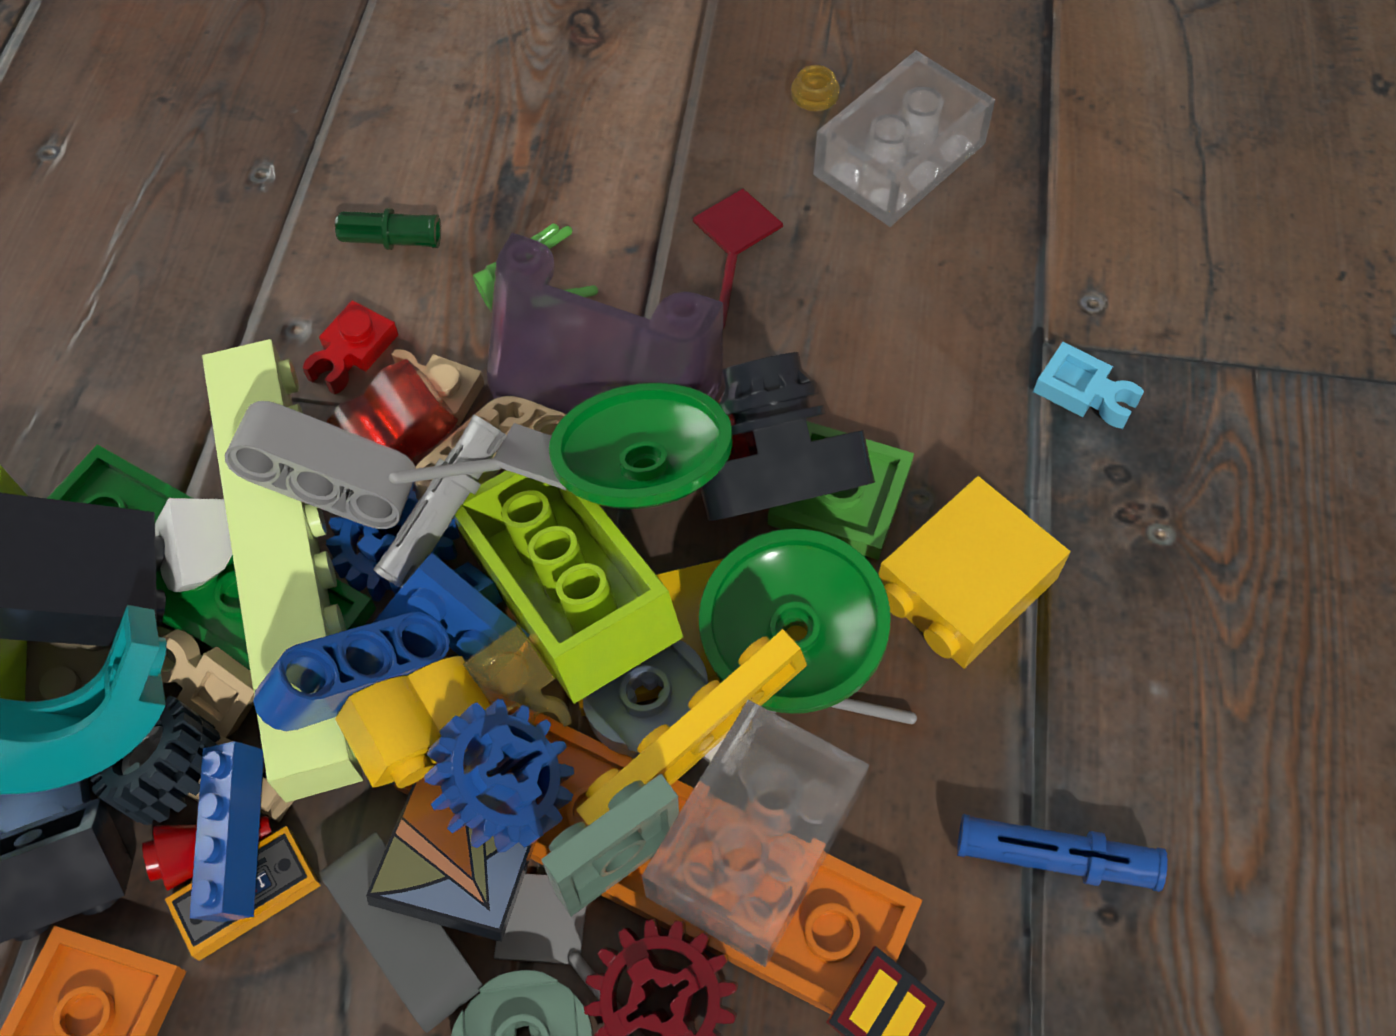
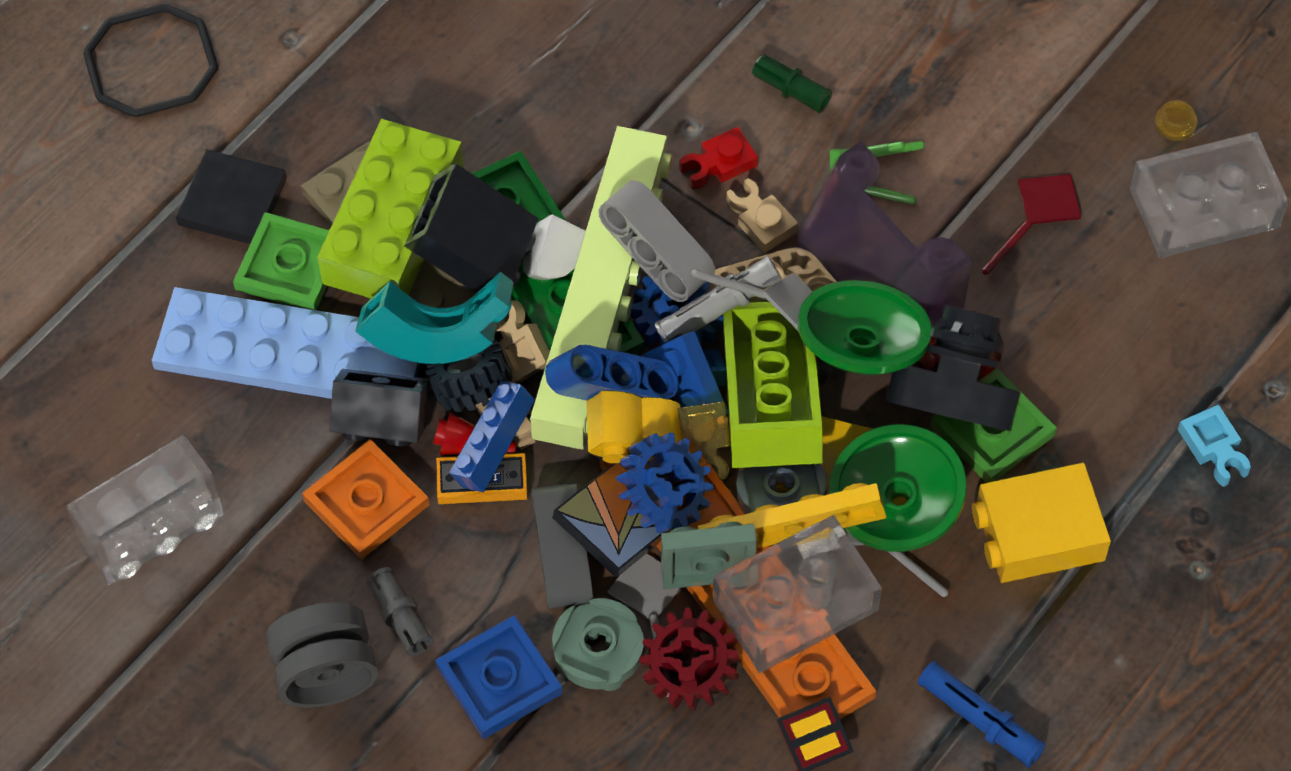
camera: 30 degrees right, 0 degrees up
(398, 411) = (723, 227): clear red brick -> none

